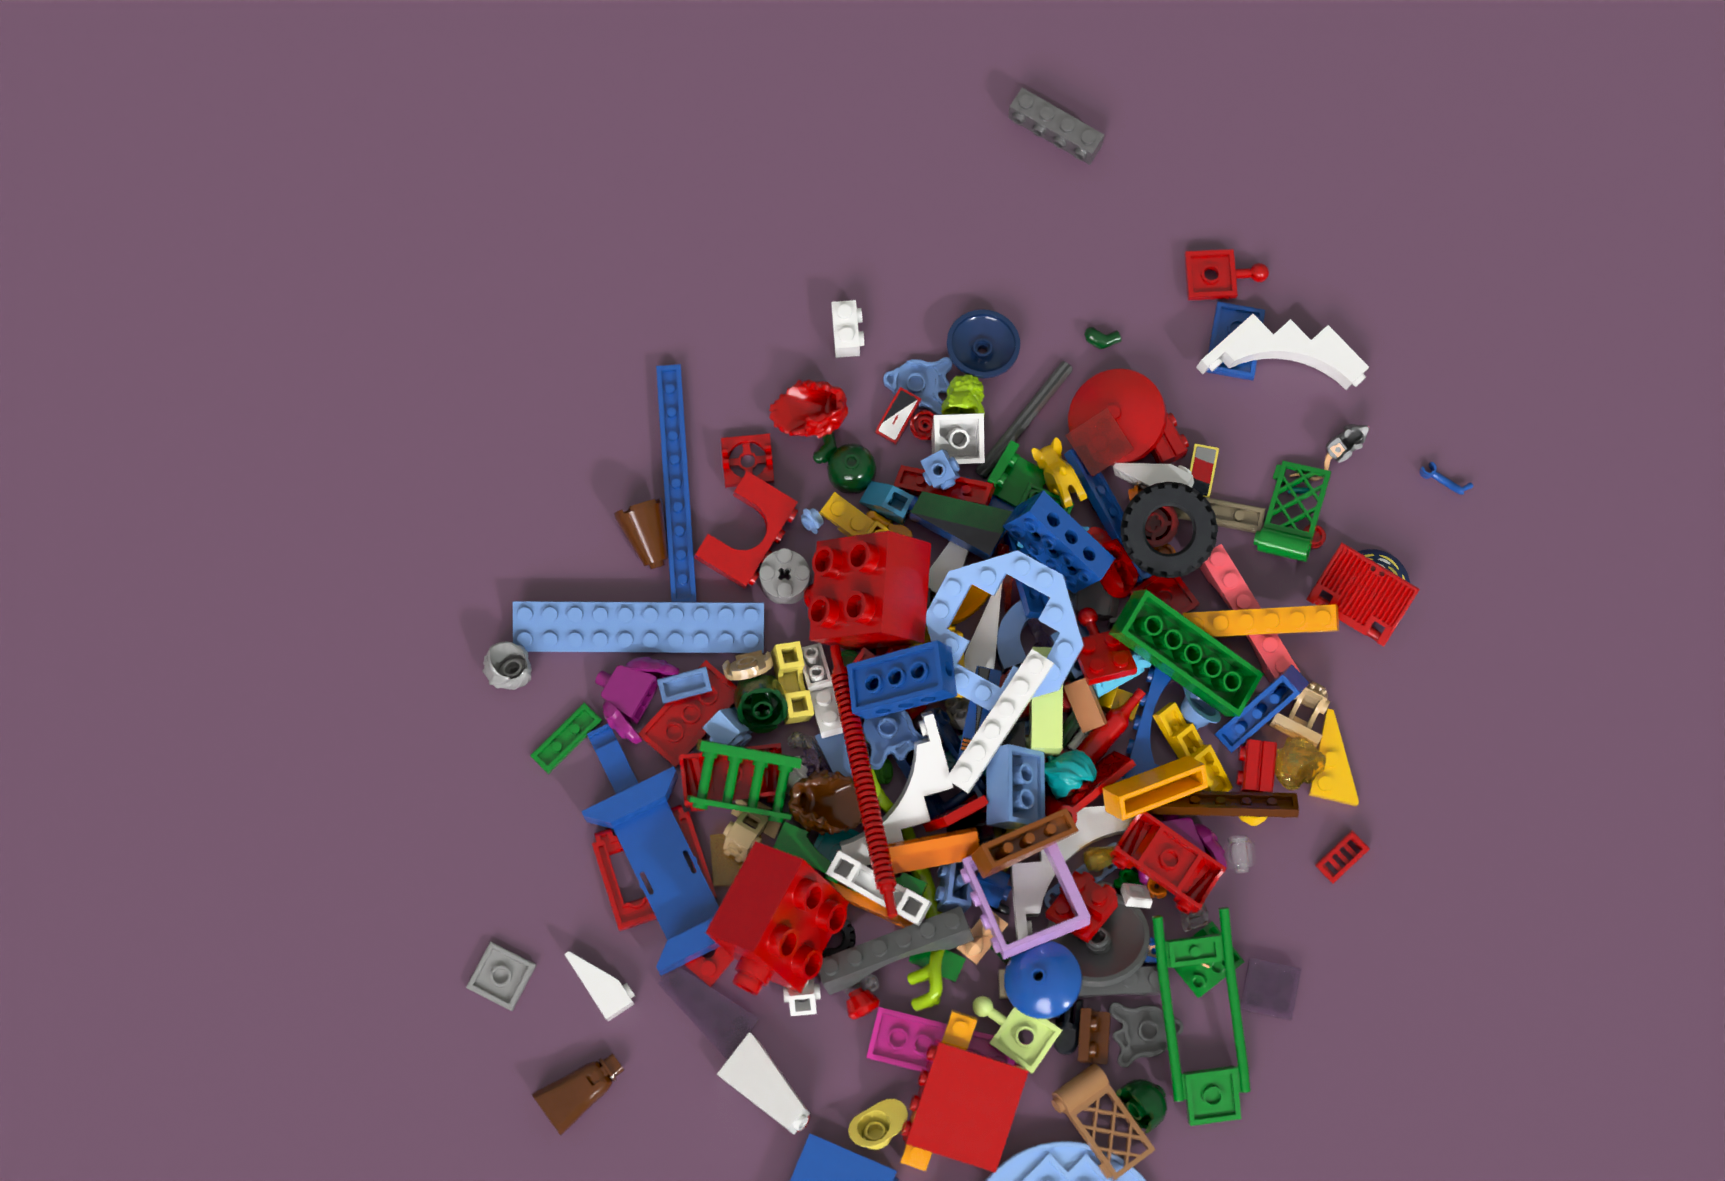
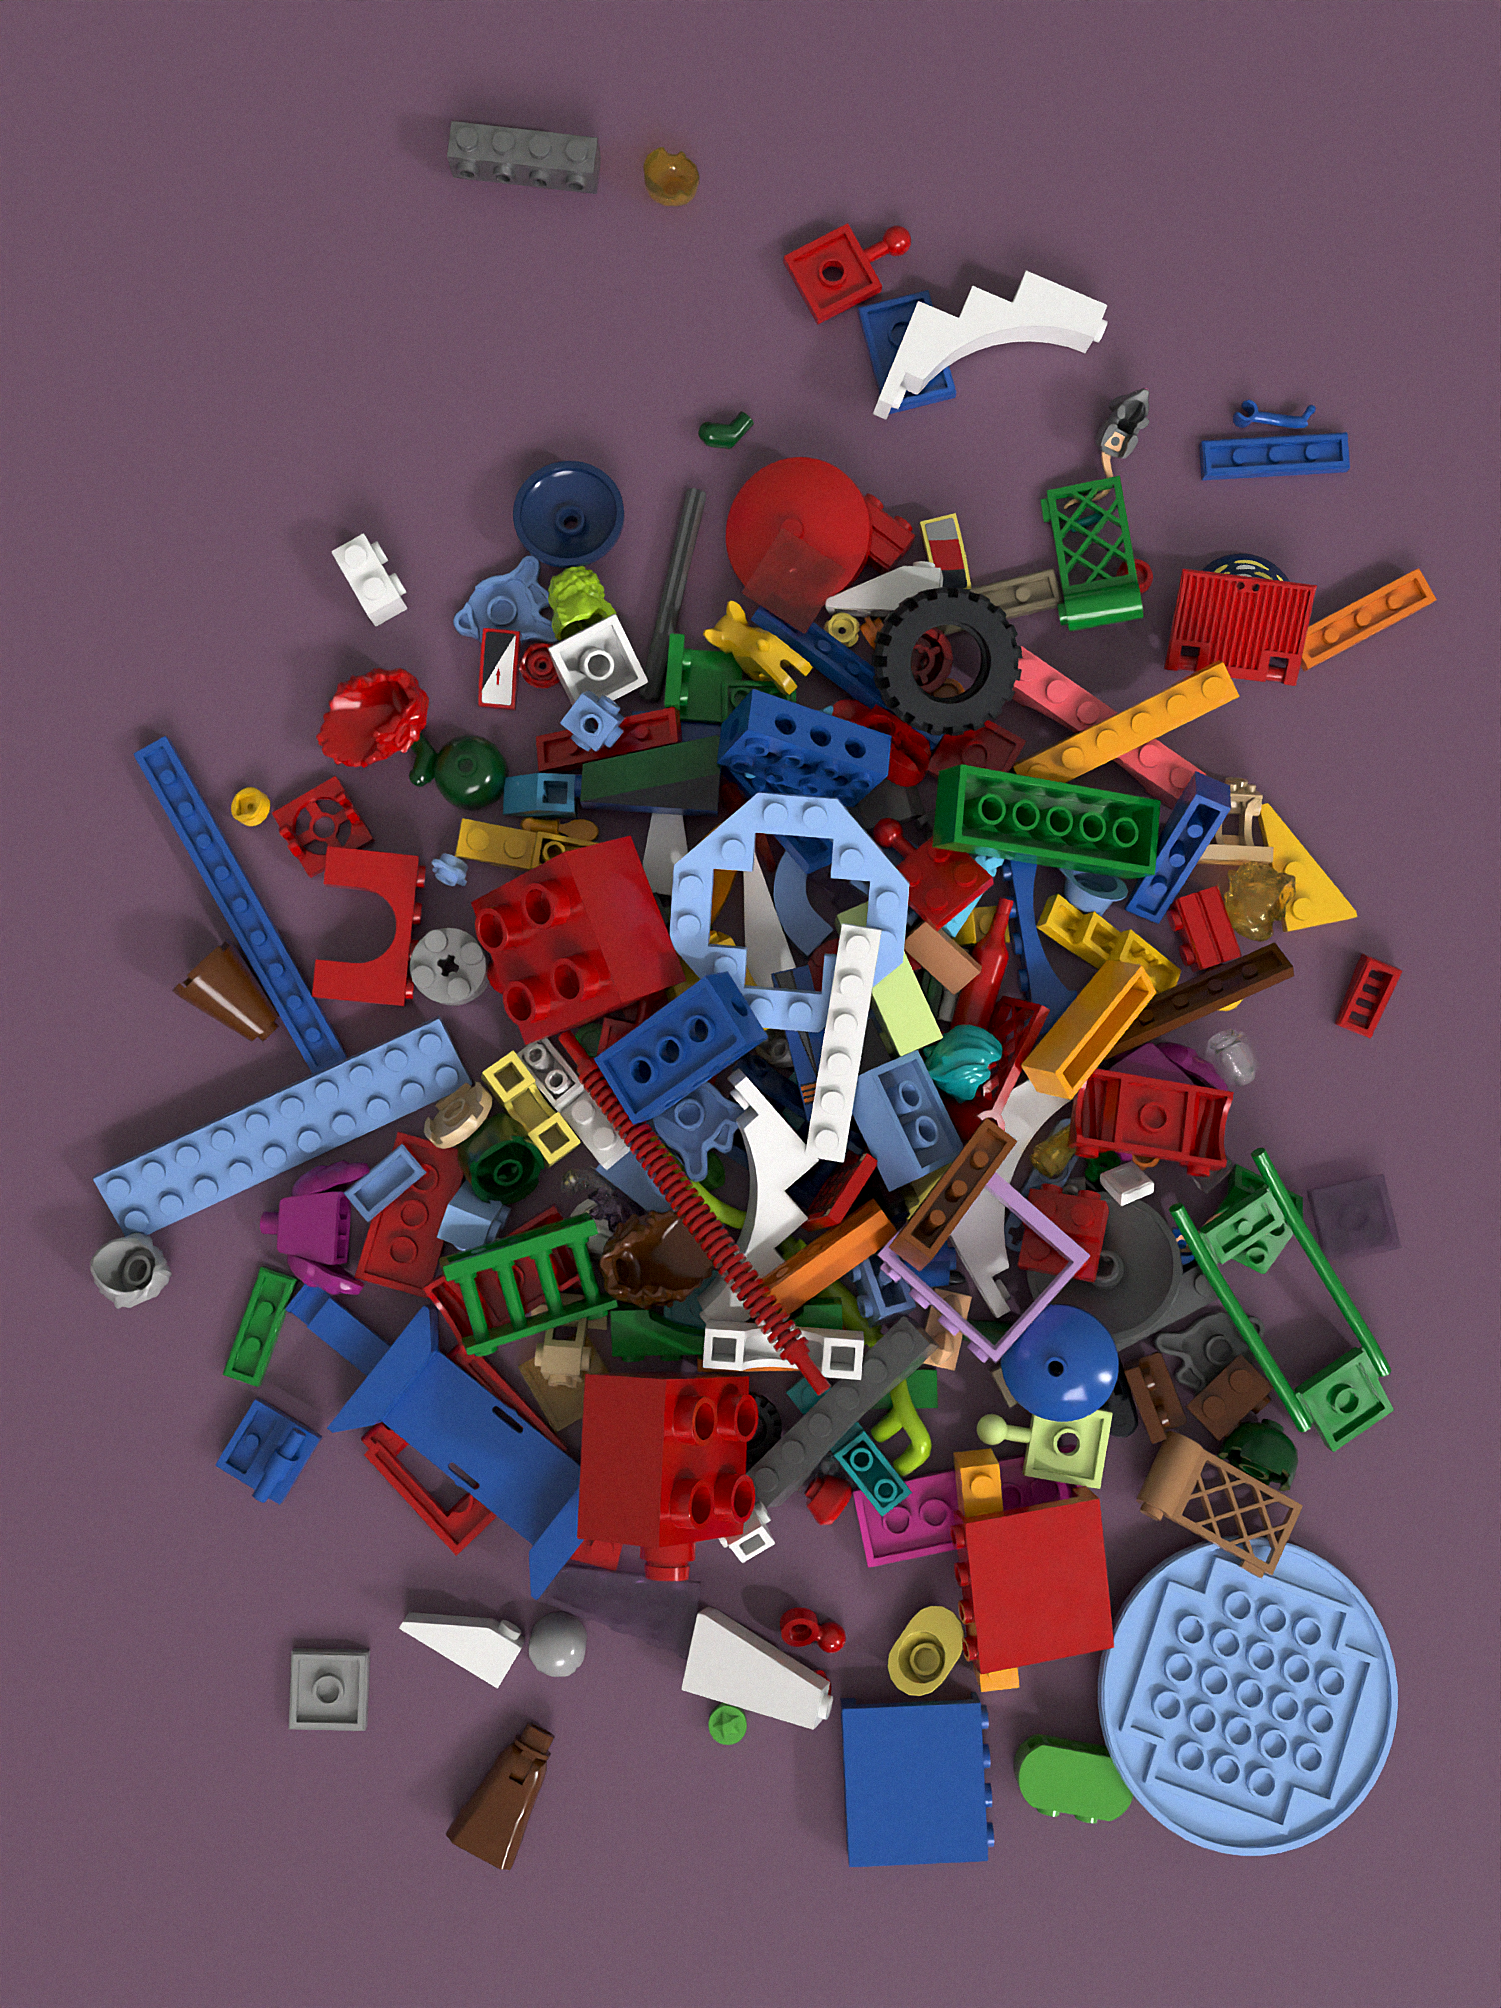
camera: 30 degrees left, 10 degrees up
(535, 814) = (268, 1451): none -> blue plate
(652, 1015) = (557, 1644): none -> light grey hair
(710, 428) = (250, 806): none -> yellow tile
(733, 1114) = (727, 1724): none -> bright green tile
(821, 1091) = (801, 1628): none -> red plate
(892, 982) = (858, 1456): none -> teal slope
(1120, 481) = (845, 621): none -> light yellow plate
(1138, 176) = (670, 177): none -> clear yellow hair
(1141, 1061) = (1230, 1397): none -> reddish brown bracket
(1435, 503) = (1274, 456): none -> blue tile
(1445, 626) = (1366, 618): none -> orange plate

